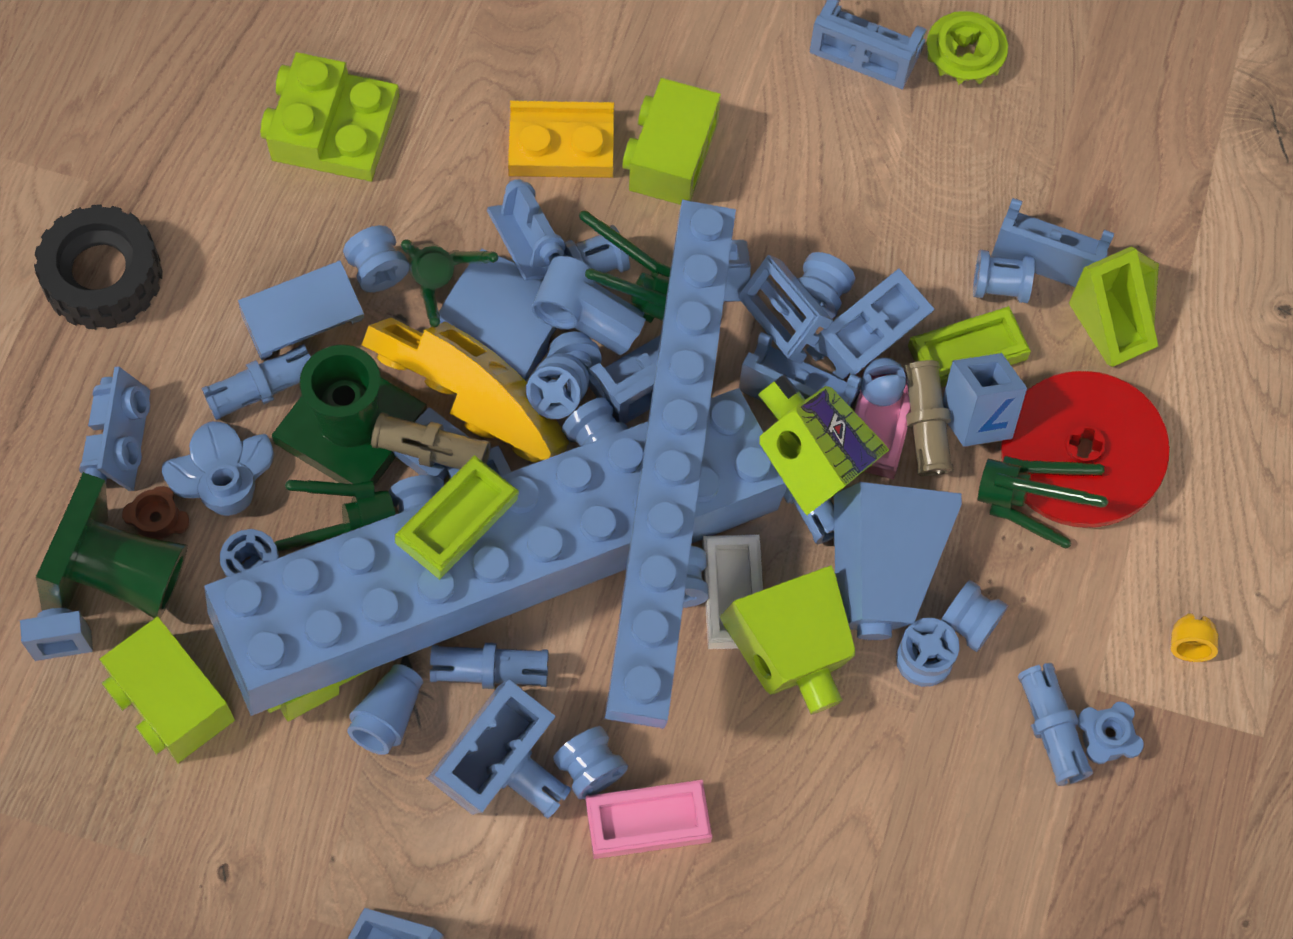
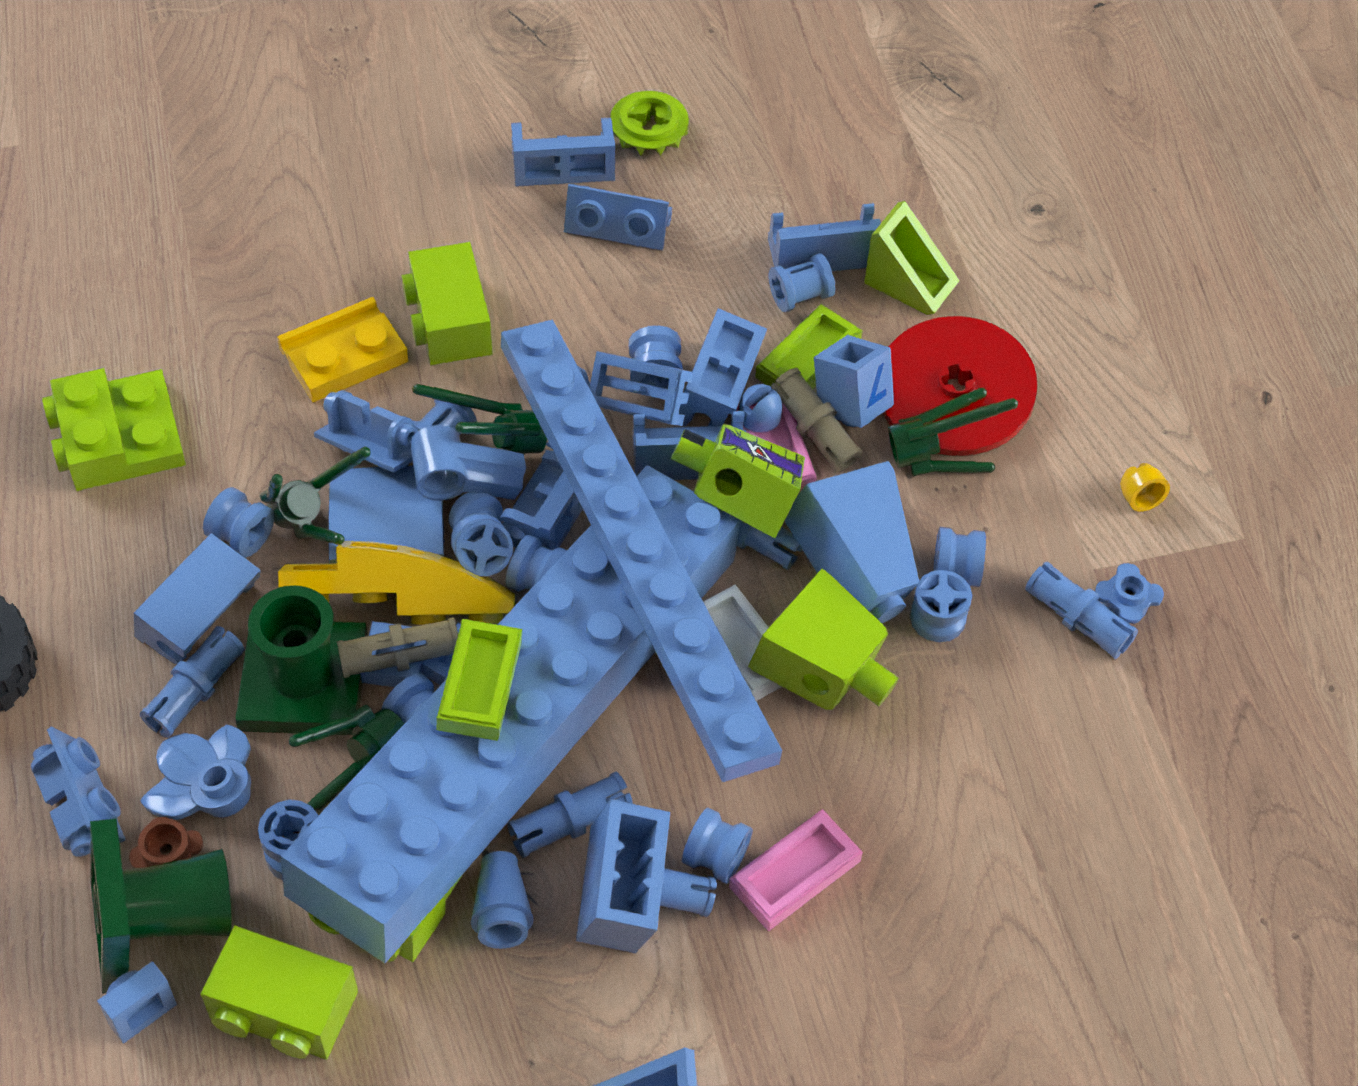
camera: 30 degrees left, 10 degrees down
(875, 129) = (616, 216): none -> medium blue hinge

